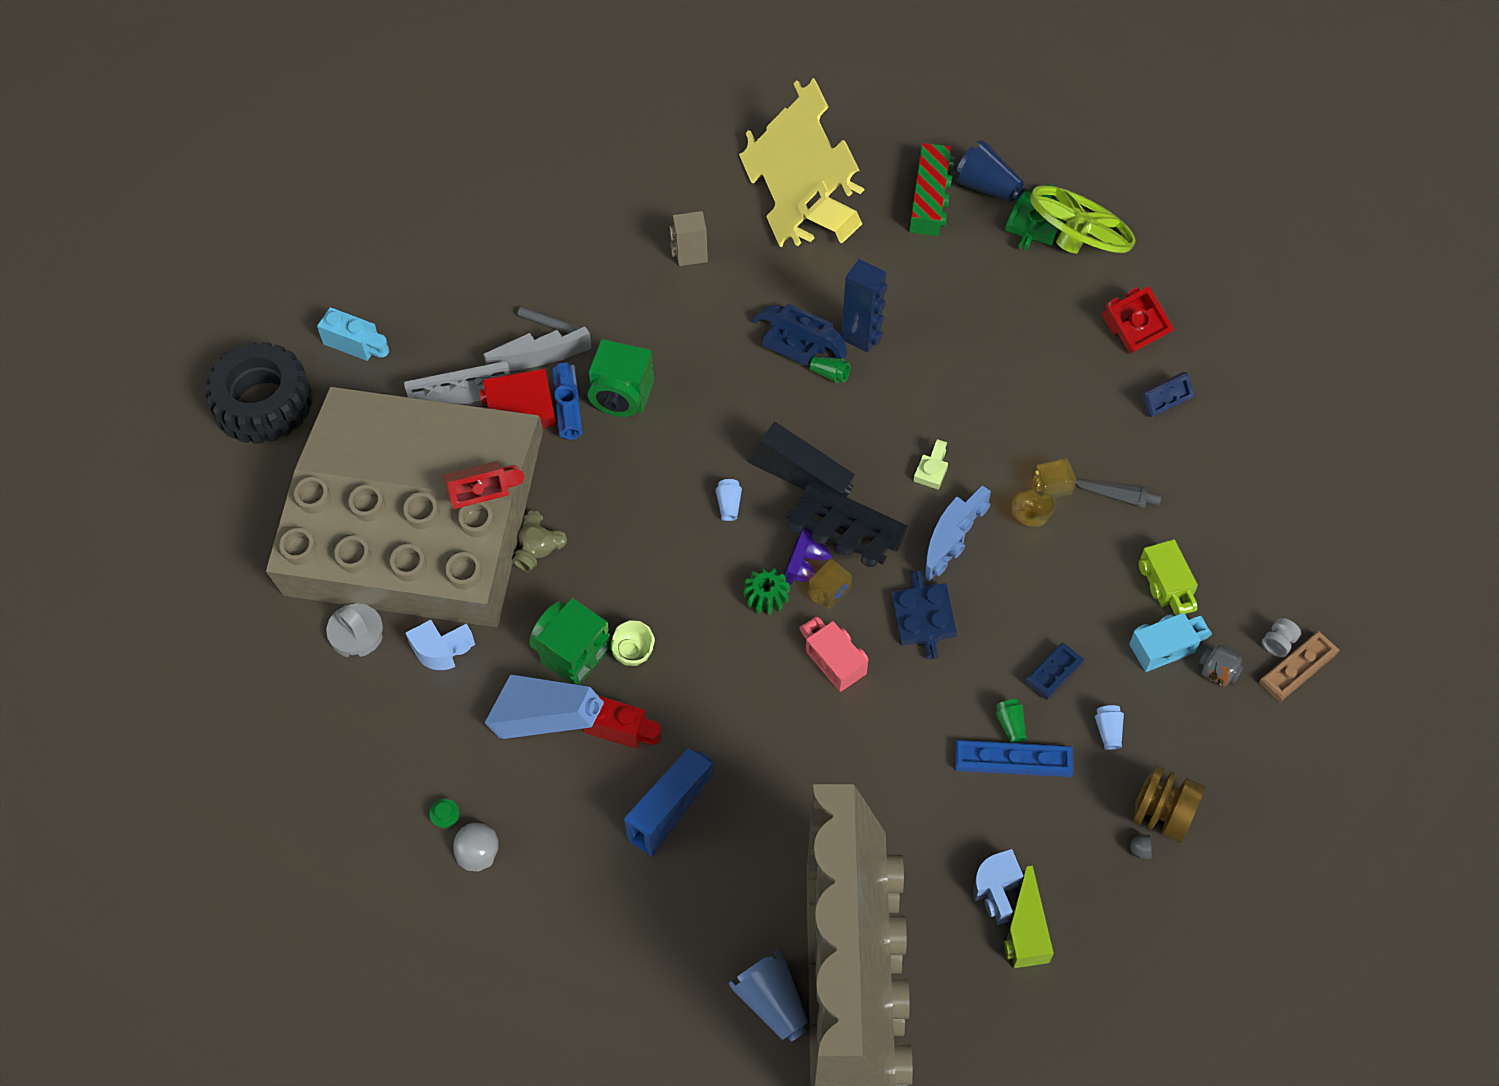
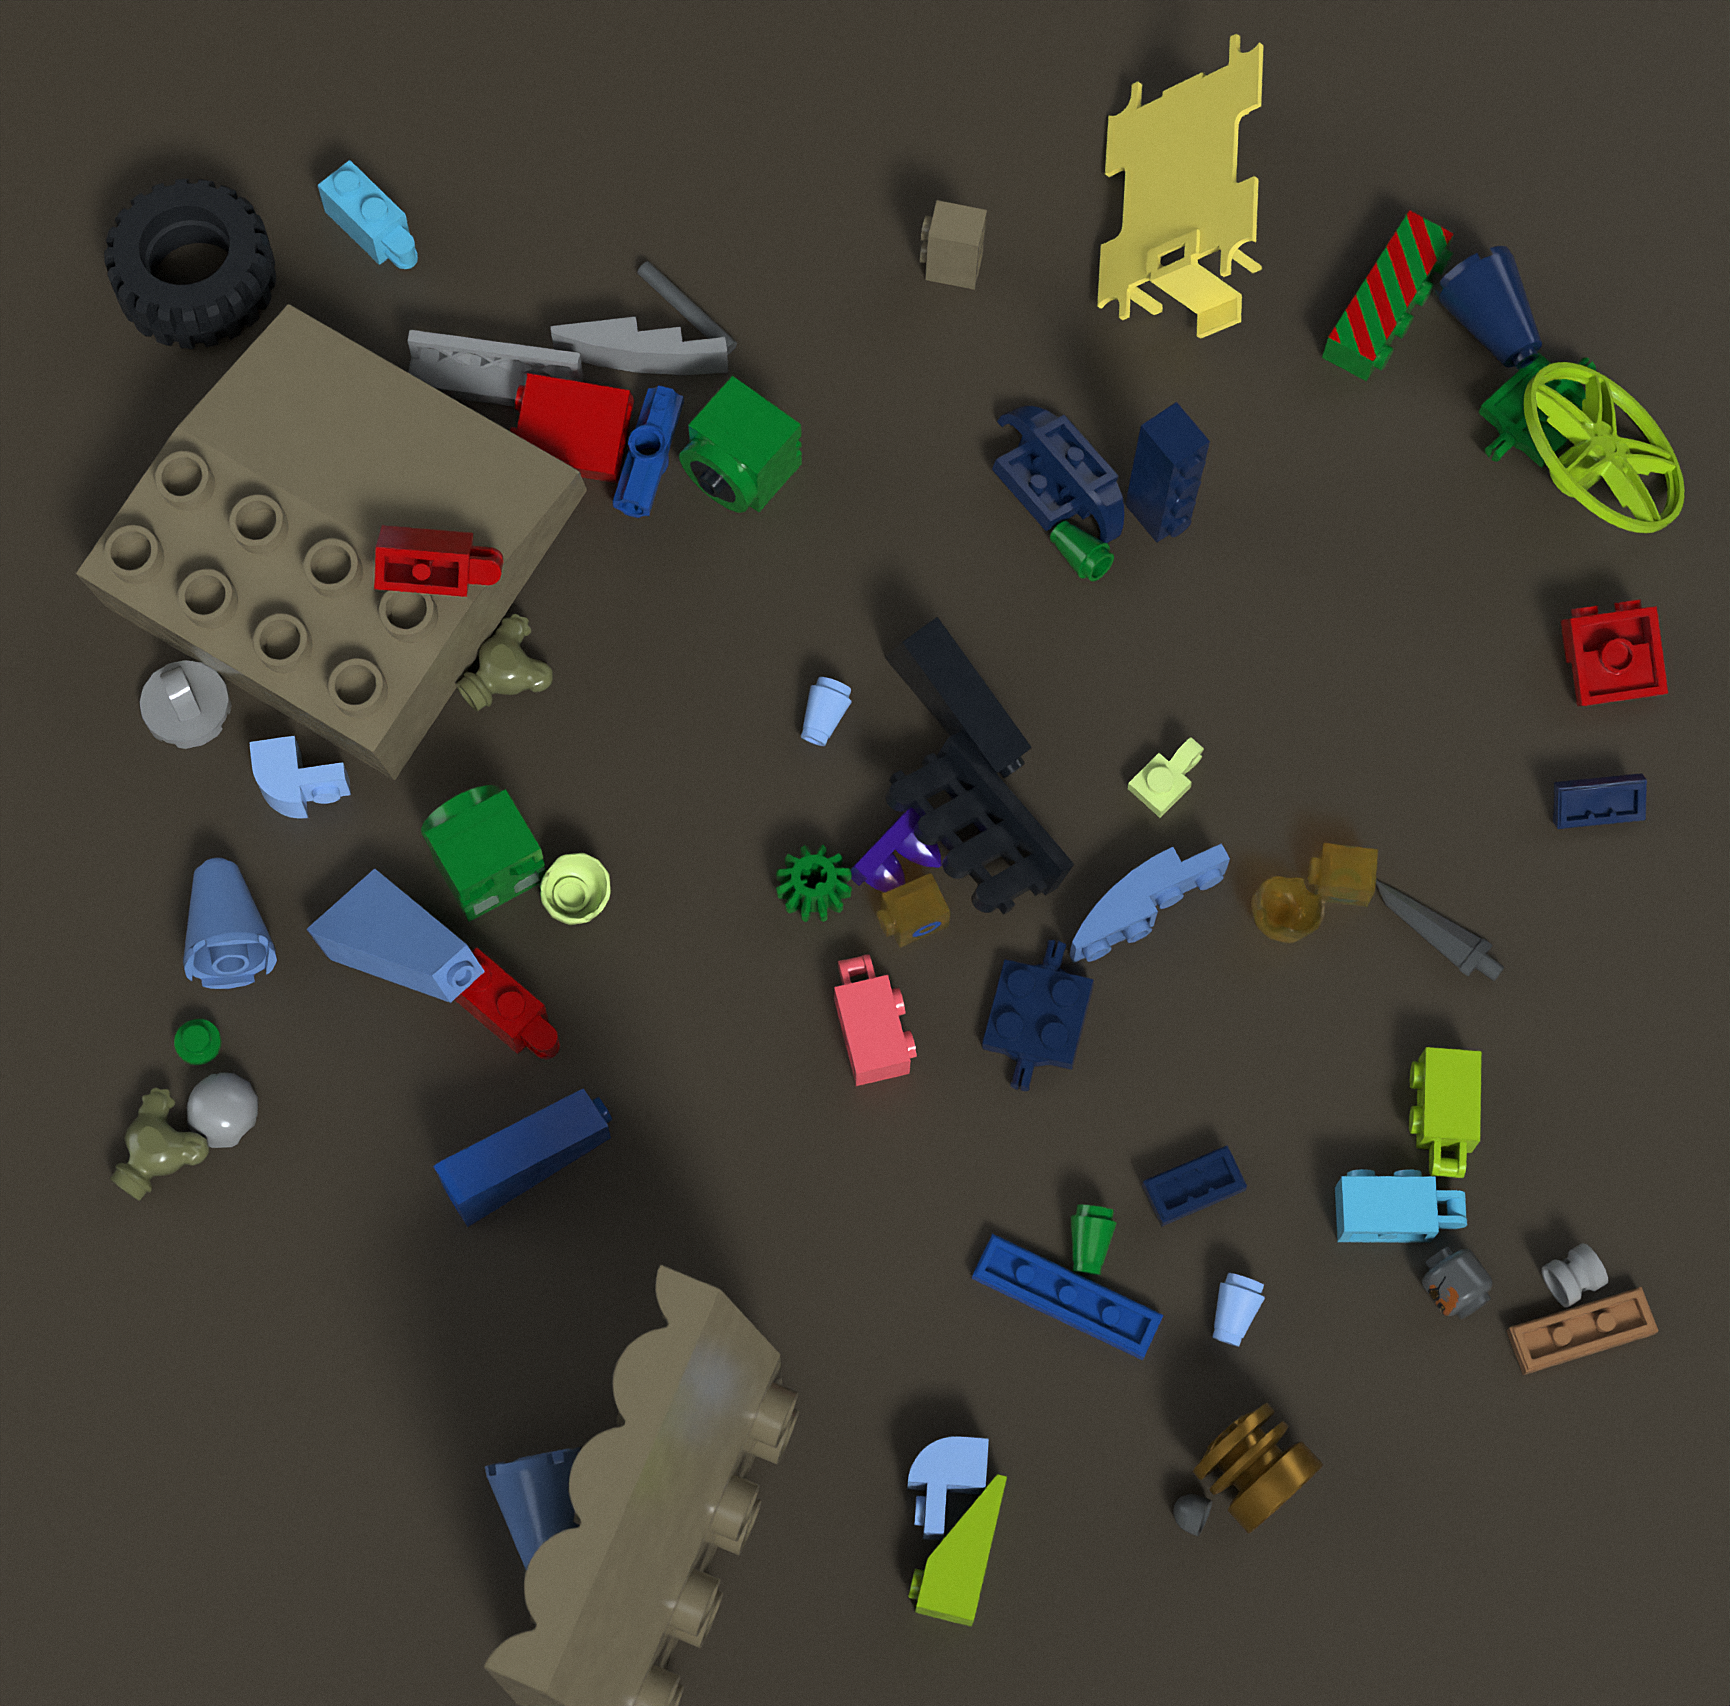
camera: 20 degrees right, 10 degrees up
(436, 742) = (224, 929): none -> medium blue cone
(445, 882) = (156, 1146): none -> olive animal

